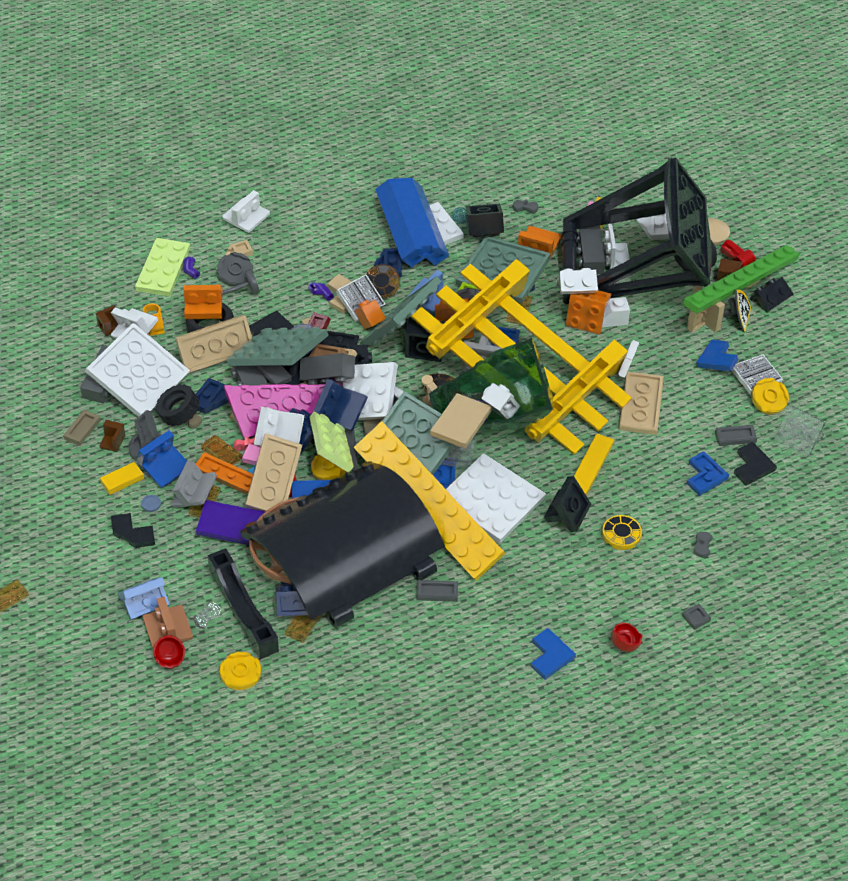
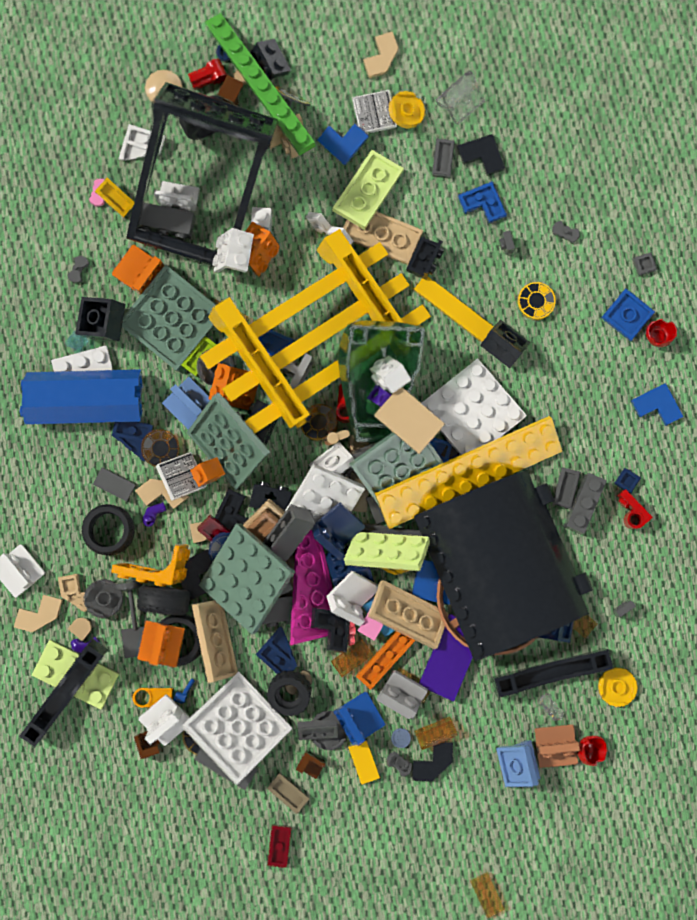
camera: 75 degrees left, 35 degrees up
(30, 427) = (279, 846): none -> dark red plate
(125, 501) = (399, 763): none -> dark grey piece
(157, 336) = (181, 697): none -> blue hand
(161, 525) = (436, 733): none -> clear orange tile
(175, 256) = (63, 692): none -> black arch
(205, 263) = (81, 628): none -> tan tile
(213, 240) = (32, 621): none -> tan tile
(243, 297) = (163, 600): none -> black tyre
(245, 427) = (335, 625): none -> black tile
(274, 300) = (171, 575): none -> light orange bracket
(297, 272) = (88, 524): none -> black tyre
(324, 656) = (623, 608): none -> dark grey tile
(340, 261) = (114, 484): none -> dark grey tile
(424, 602) = (584, 503): none -> dark grey brick
(425, 650) = (628, 501): none -> red plate
(461, 641) = (627, 480): none -> dark blue tile
(629, 434) = (424, 258): none -> black bracket
(637, 610) = (628, 314): none -> blue tile
(671, 495) = (506, 242): none -> dark grey plate
(679, 380) = (368, 189): none -> yellowish green plate
(806, 372) = (381, 63): none -> tan tile

